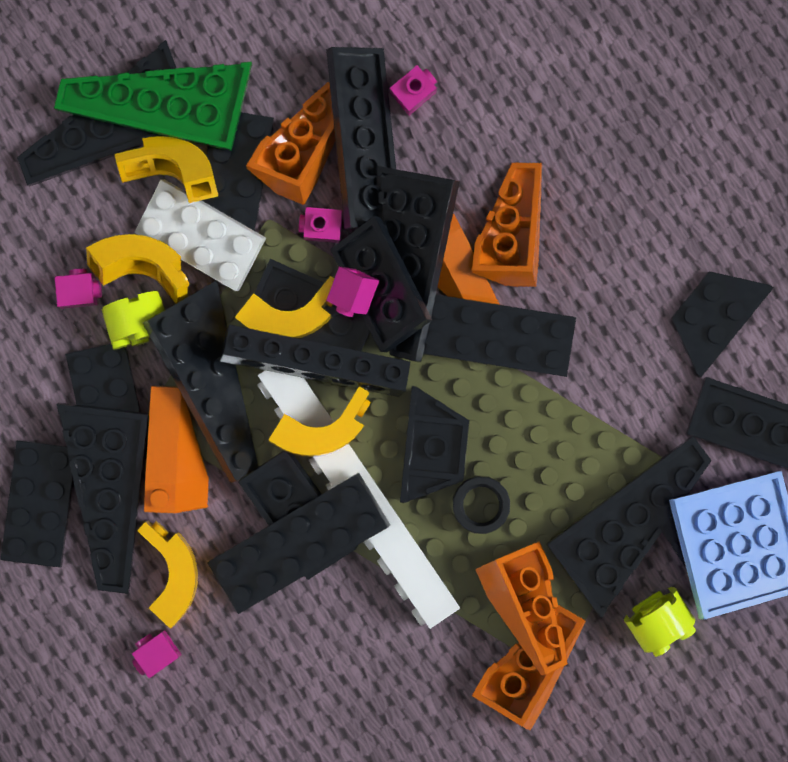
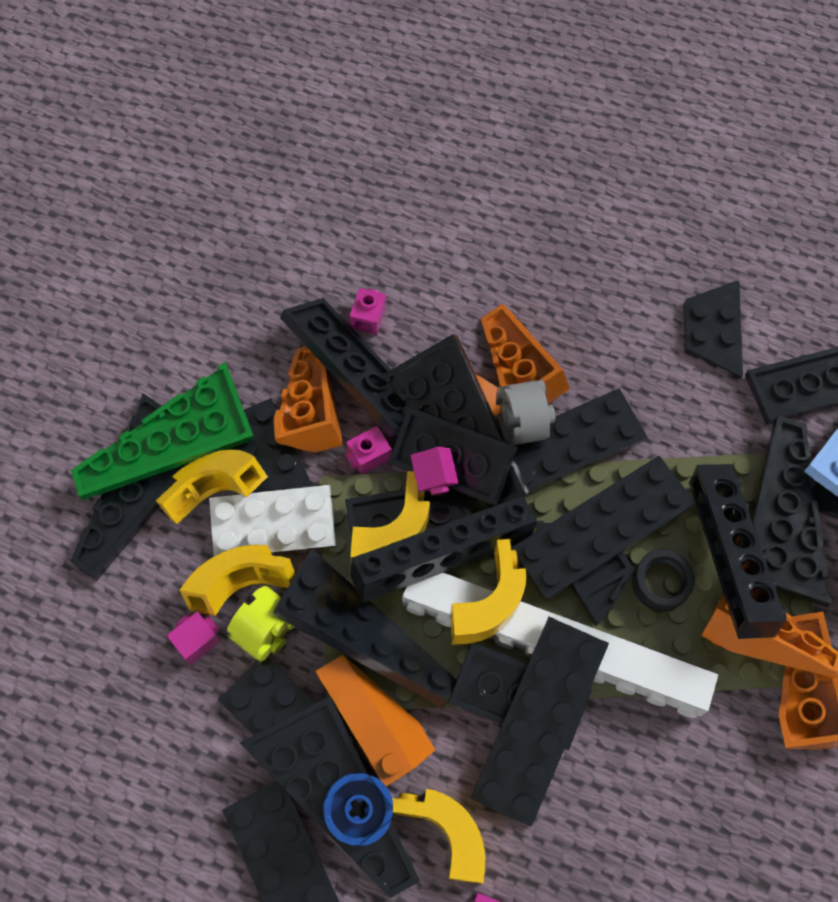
camera: 45 degrees left, 20 degrees down
(98, 526) = (377, 811): none -> blue brick
(464, 429) = (602, 528): none -> black plate
(466, 289) = (524, 412): none -> light grey brick
(510, 587) = (737, 552): none -> black brick

